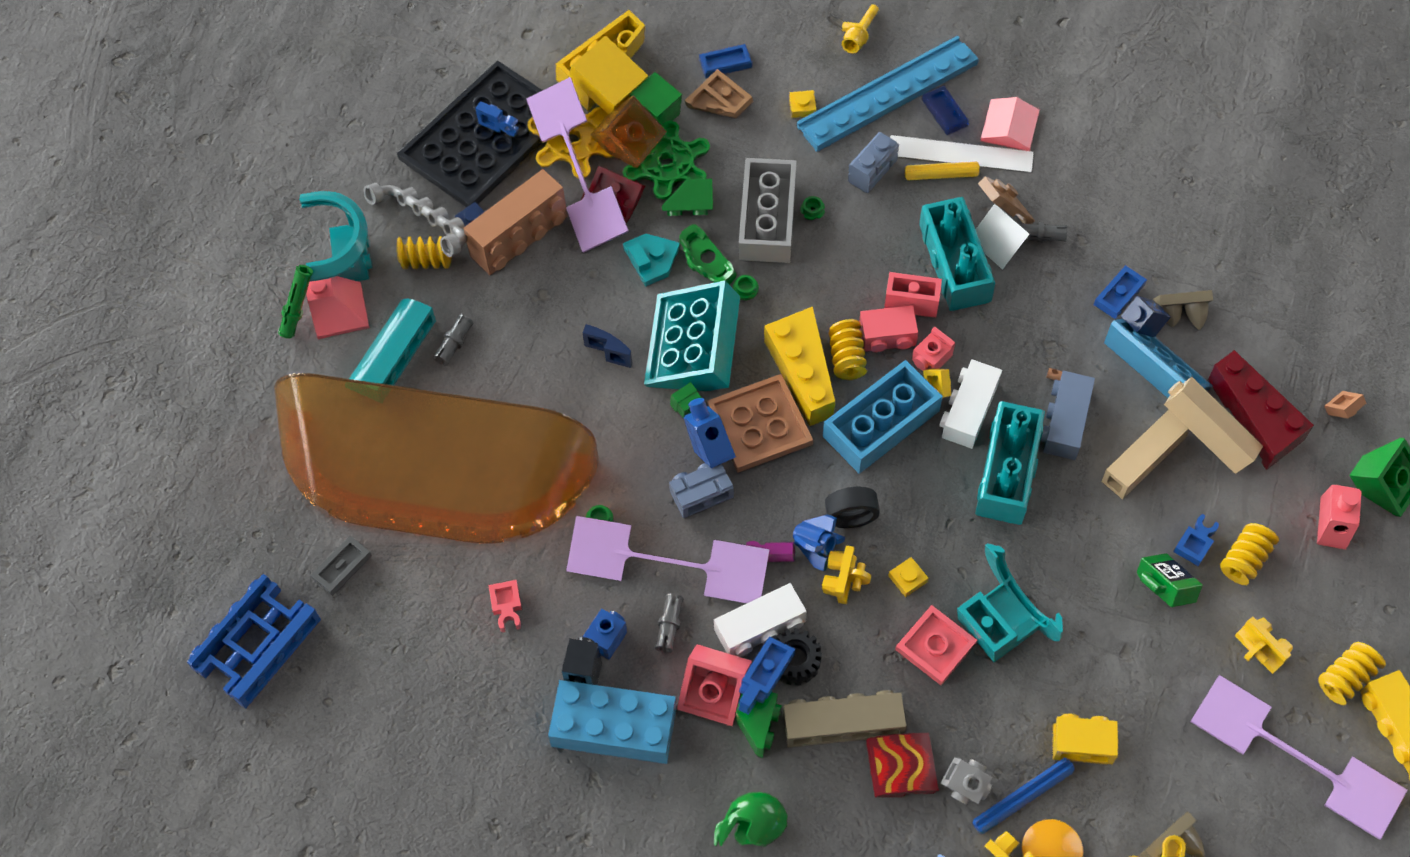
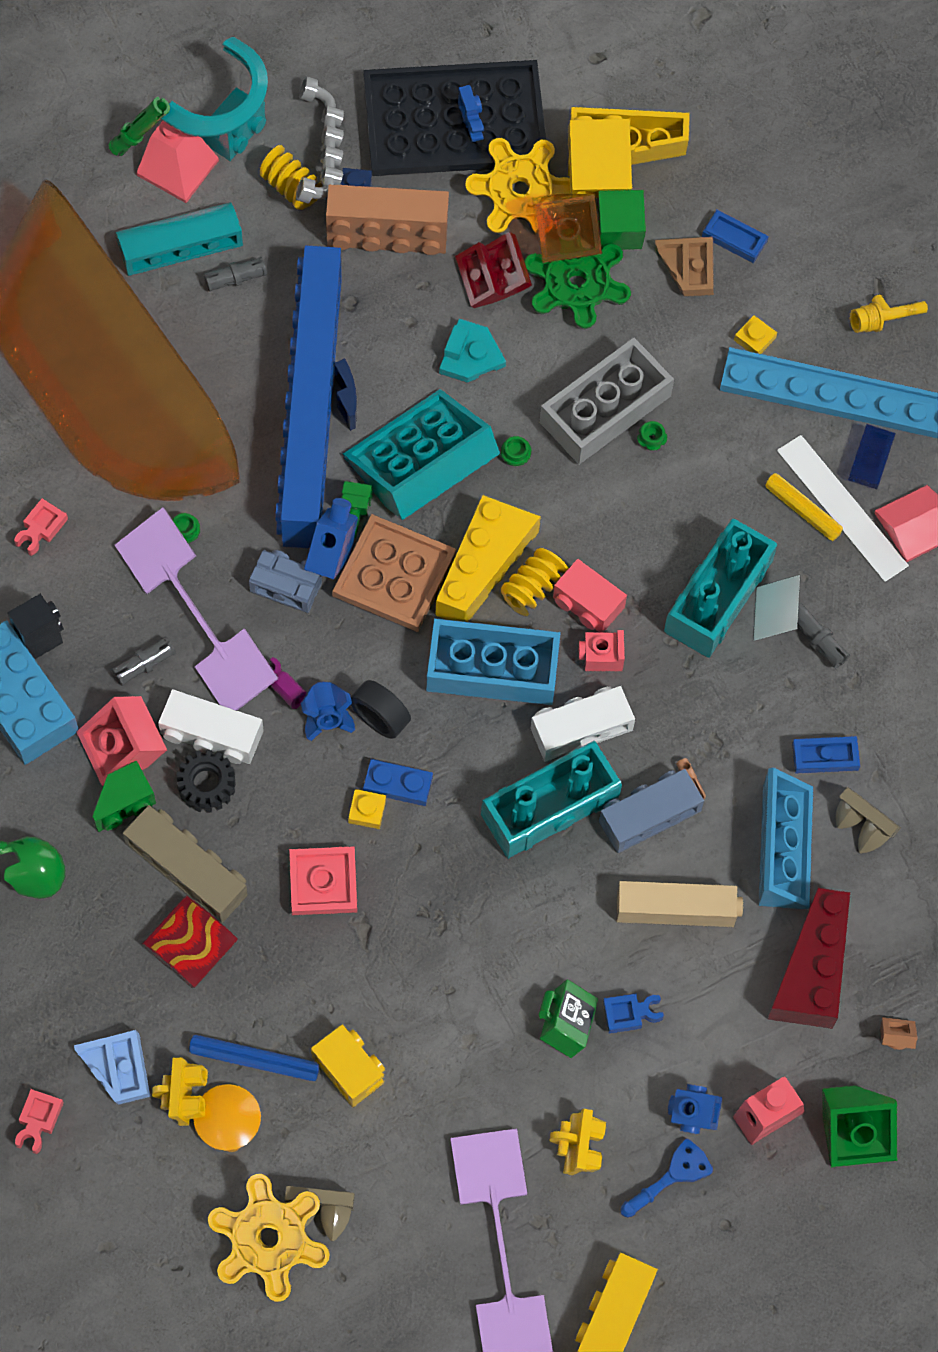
camera: 40 degrees right, 5 degrees up
(593, 366) = (309, 395): none -> blue brick
(597, 215) = (464, 272): lavender hinge -> none
(608, 631) = (86, 621): blue brick -> none
(691, 195) = (559, 330): green slope -> none
(695, 244) = (518, 374): green piece -> none
(764, 673) = (158, 766): blue hinge -> none
(845, 563) = (318, 760): yellow hips -> none
(873, 162) = (748, 443): sand blue brick -> none
(907, 543) = (398, 782): none -> blue plate
(913, 290) = (644, 589): coral brick -> none
(939, 380) = (572, 679): yellow plate -> none
(958, 777) = (208, 999): light grey brick -> none
(1004, 614) = (398, 910): teal piece -> none
(1005, 198) = (821, 581): medium nougat wing -> none
(1145, 316) = (814, 793): dark blue brick -> none
(1213, 424) = (751, 932): tan brick -> none
(1249, 553) = (658, 1062): yellow piece -> none
(1311, 555) = (705, 1113): none -> blue brick
(1331, 607) = (675, 1174): none -> blue piece
(1350, 671) = (621, 1233): yellow piece -> none

